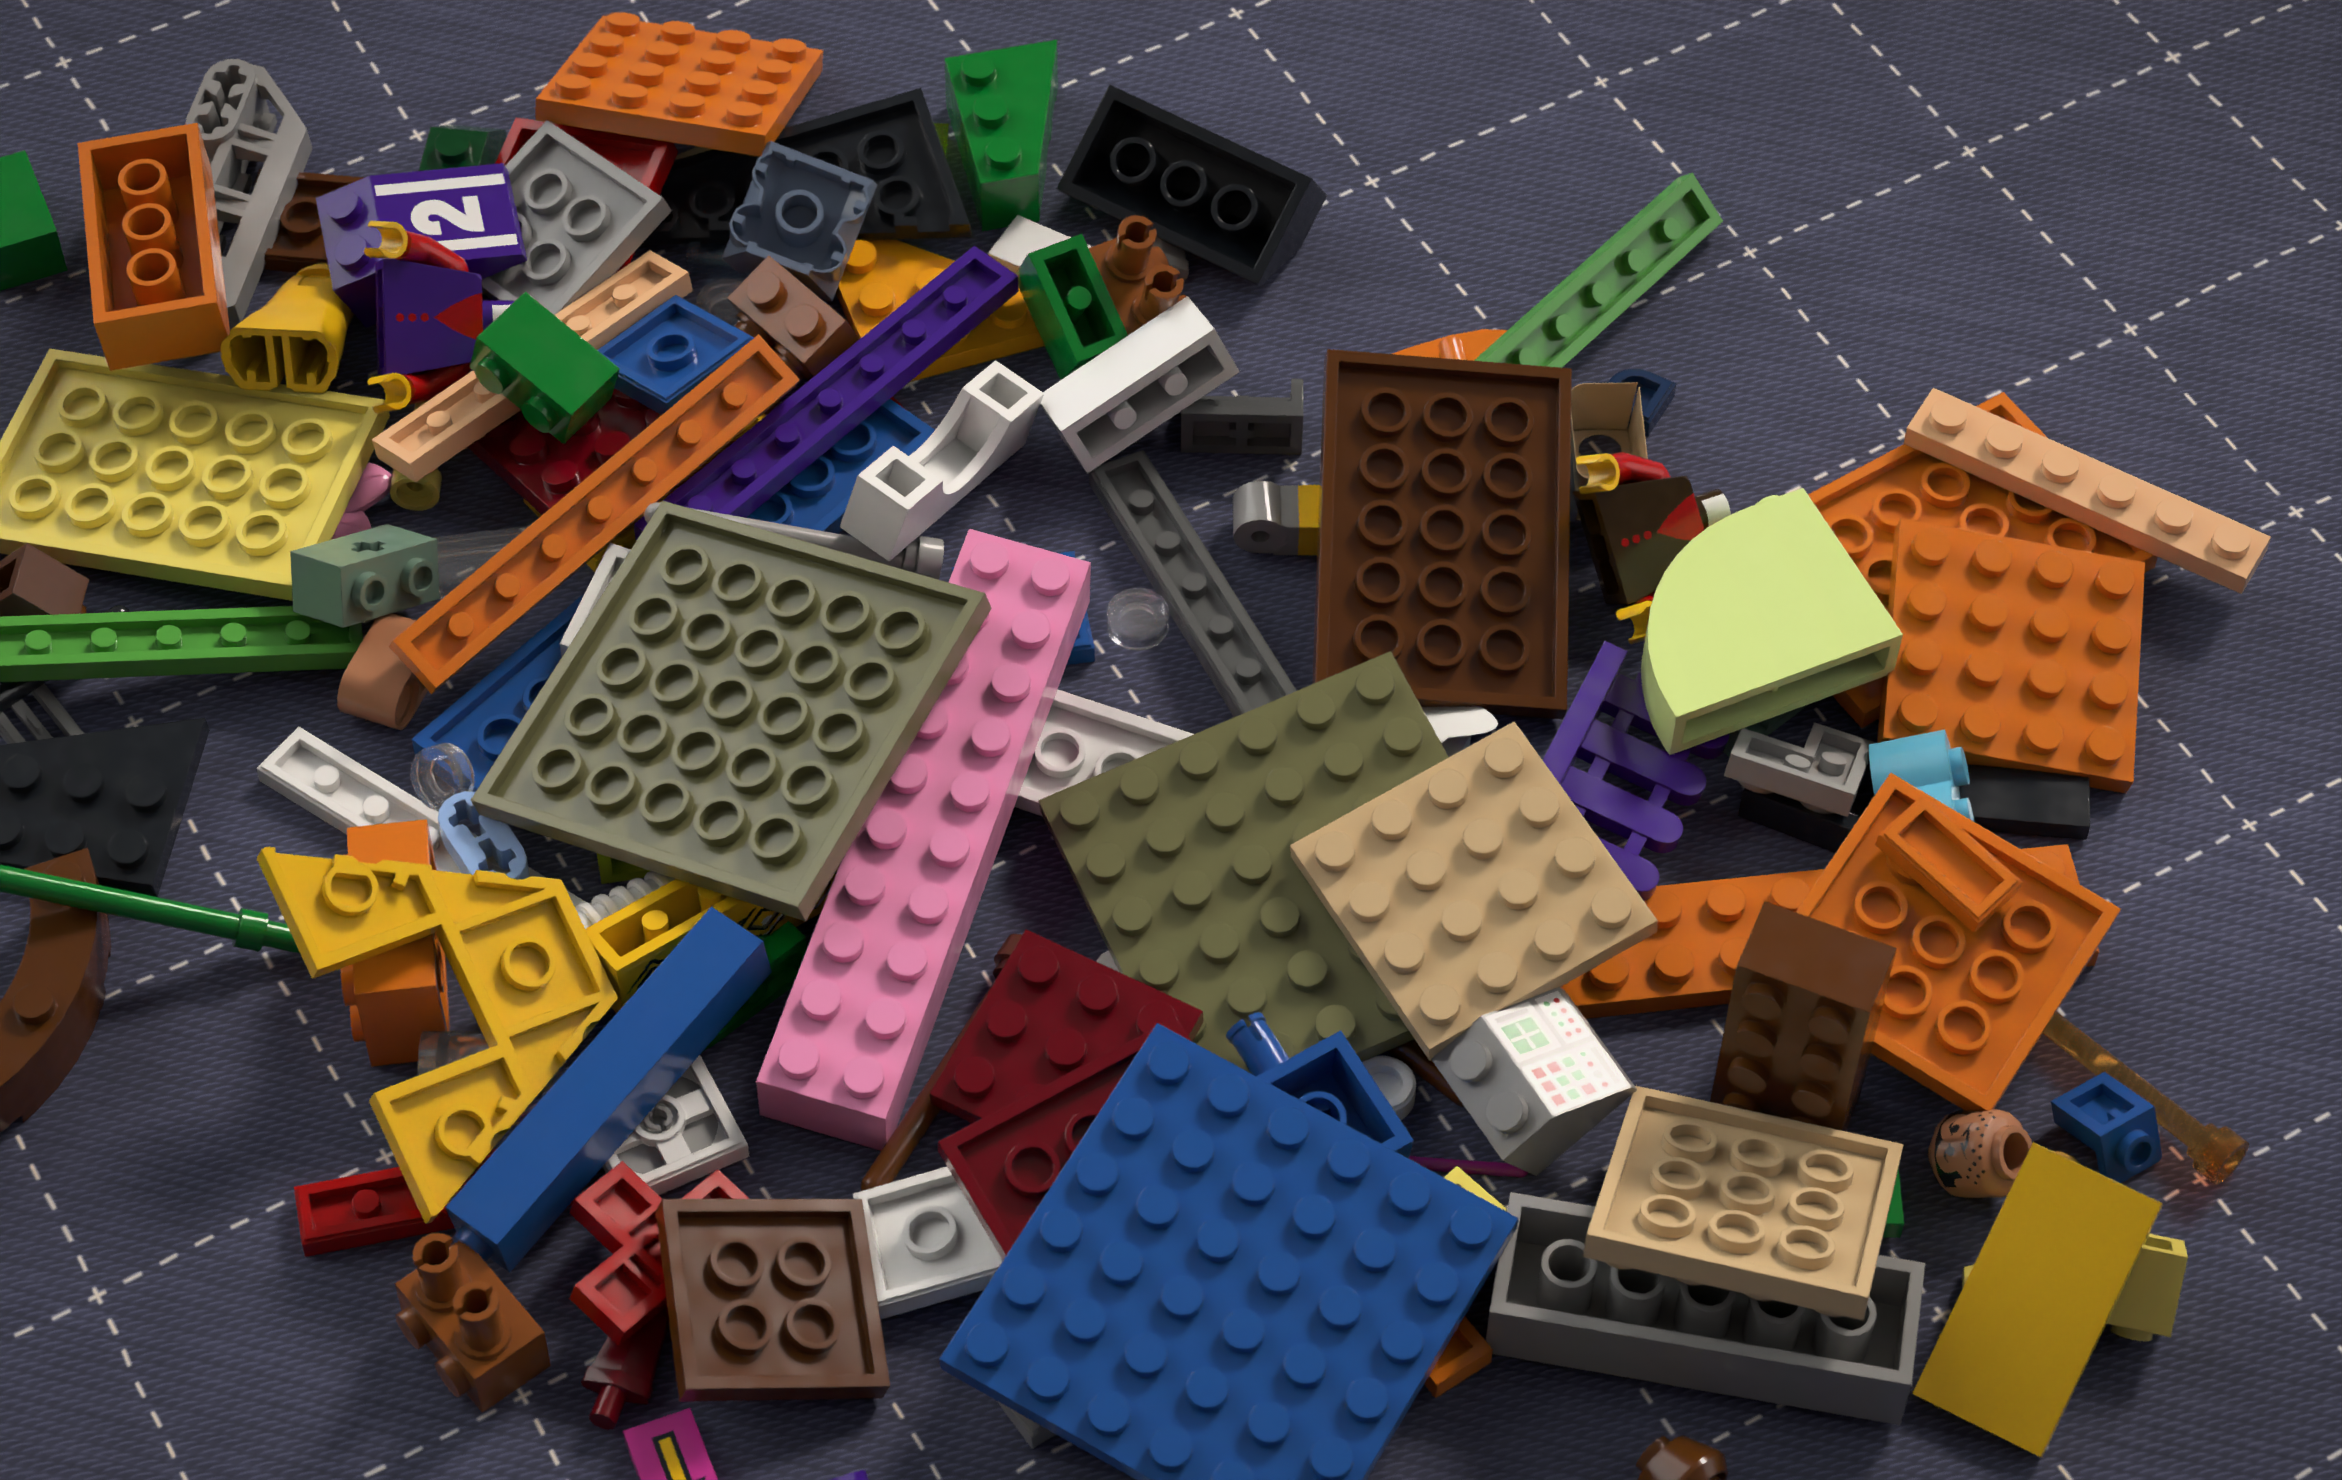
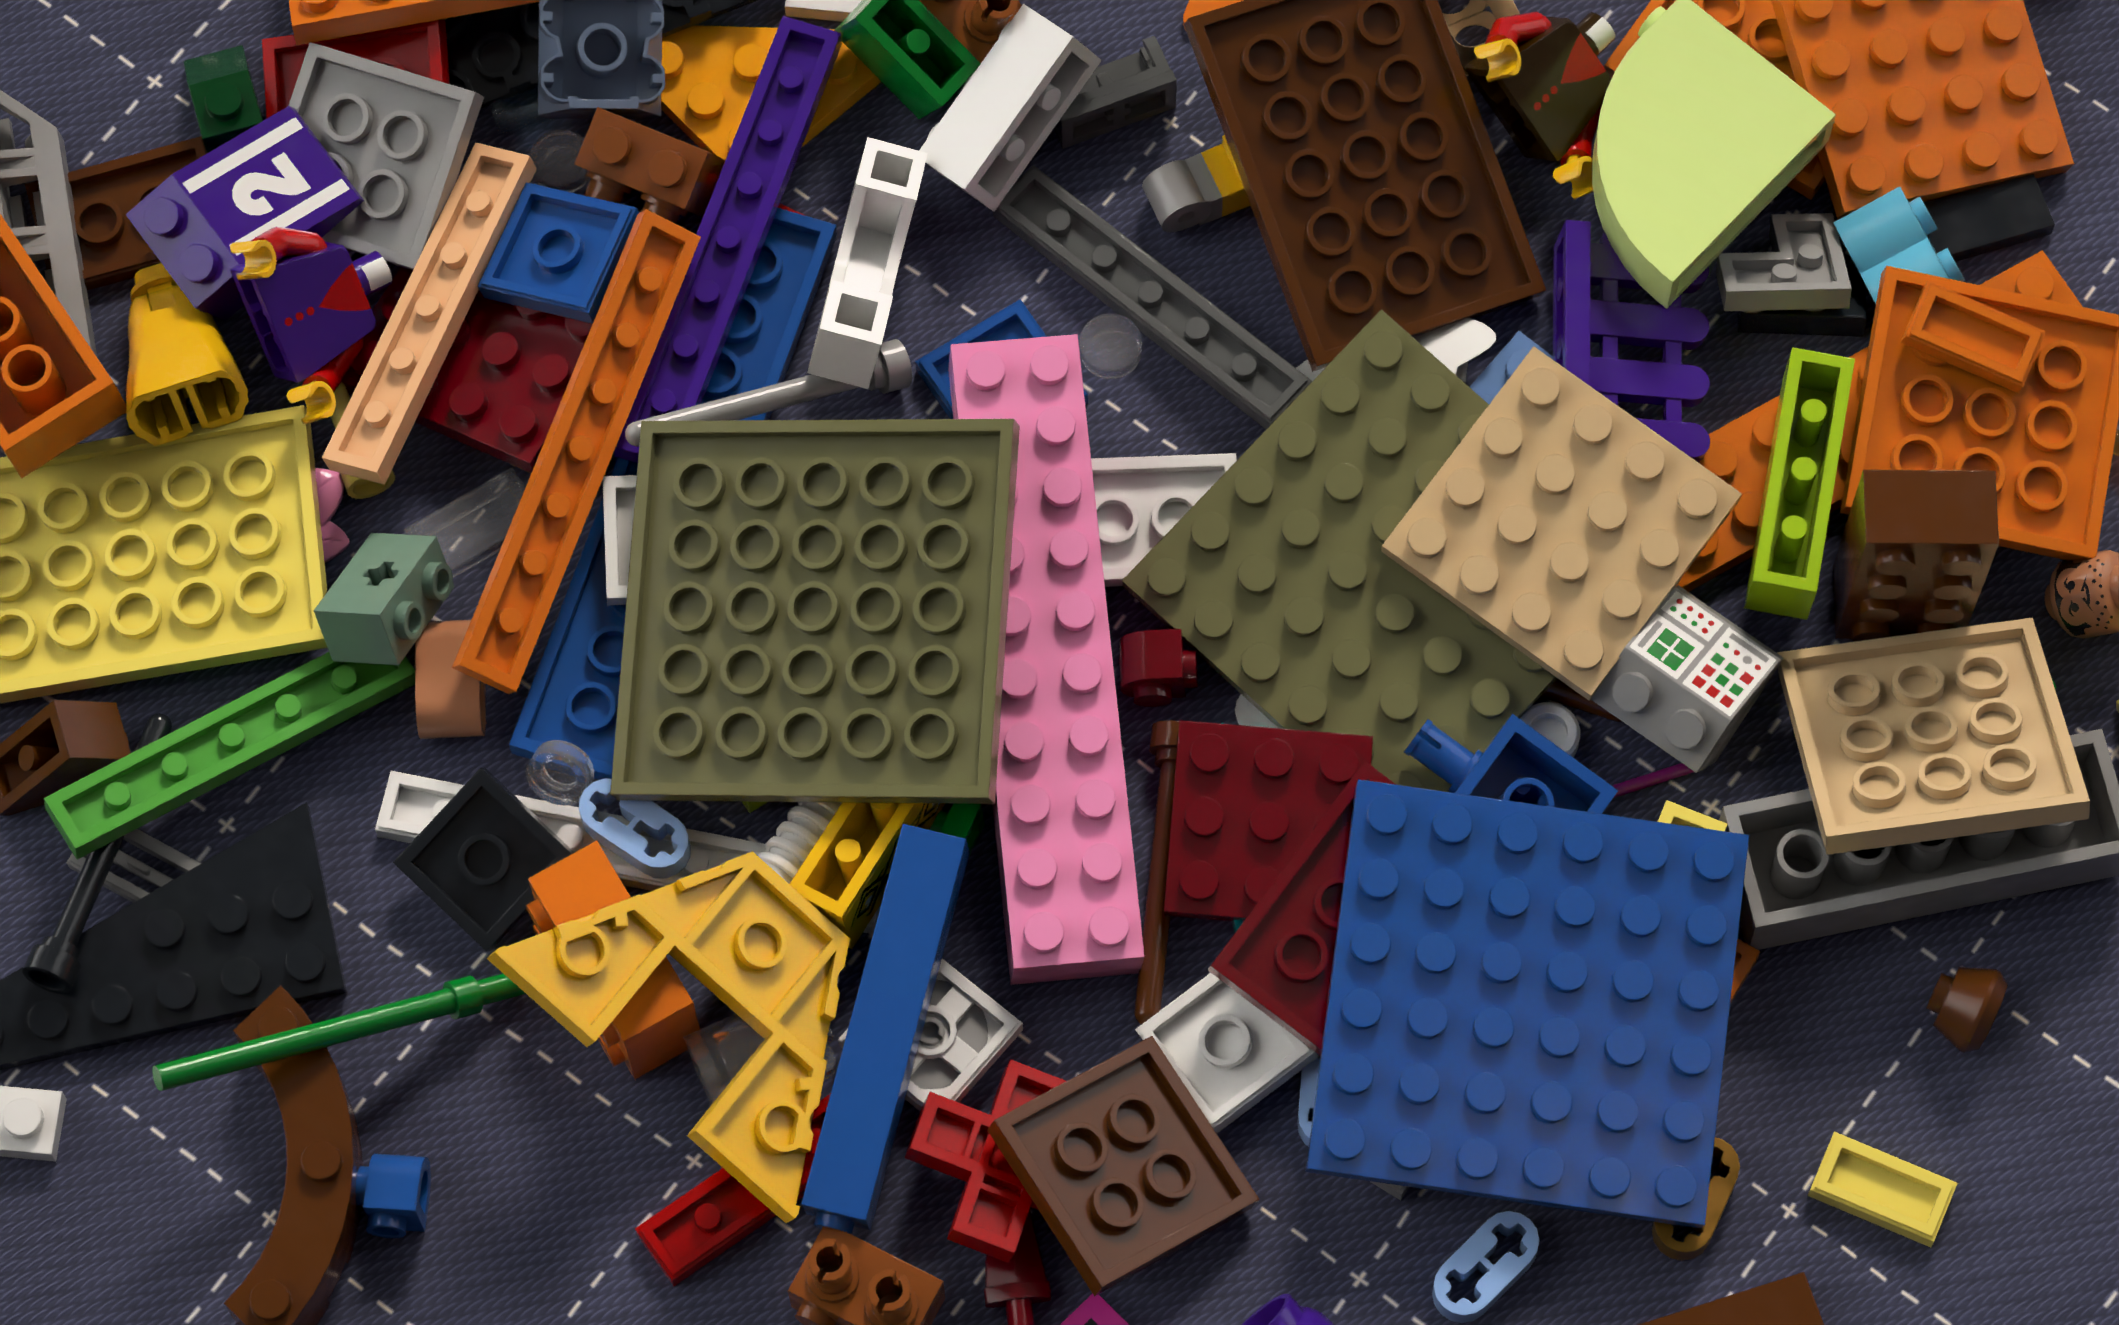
camera: 20 degrees left, 15 degrees up
(95, 1072) = (394, 1194): none -> blue plate
(317, 803) = (480, 858): none -> black plate
(543, 368) = (457, 325): green brick -> none
(1037, 890) = (1156, 667): none -> dark red plate
(1698, 966) = (1799, 483): none -> lime brick

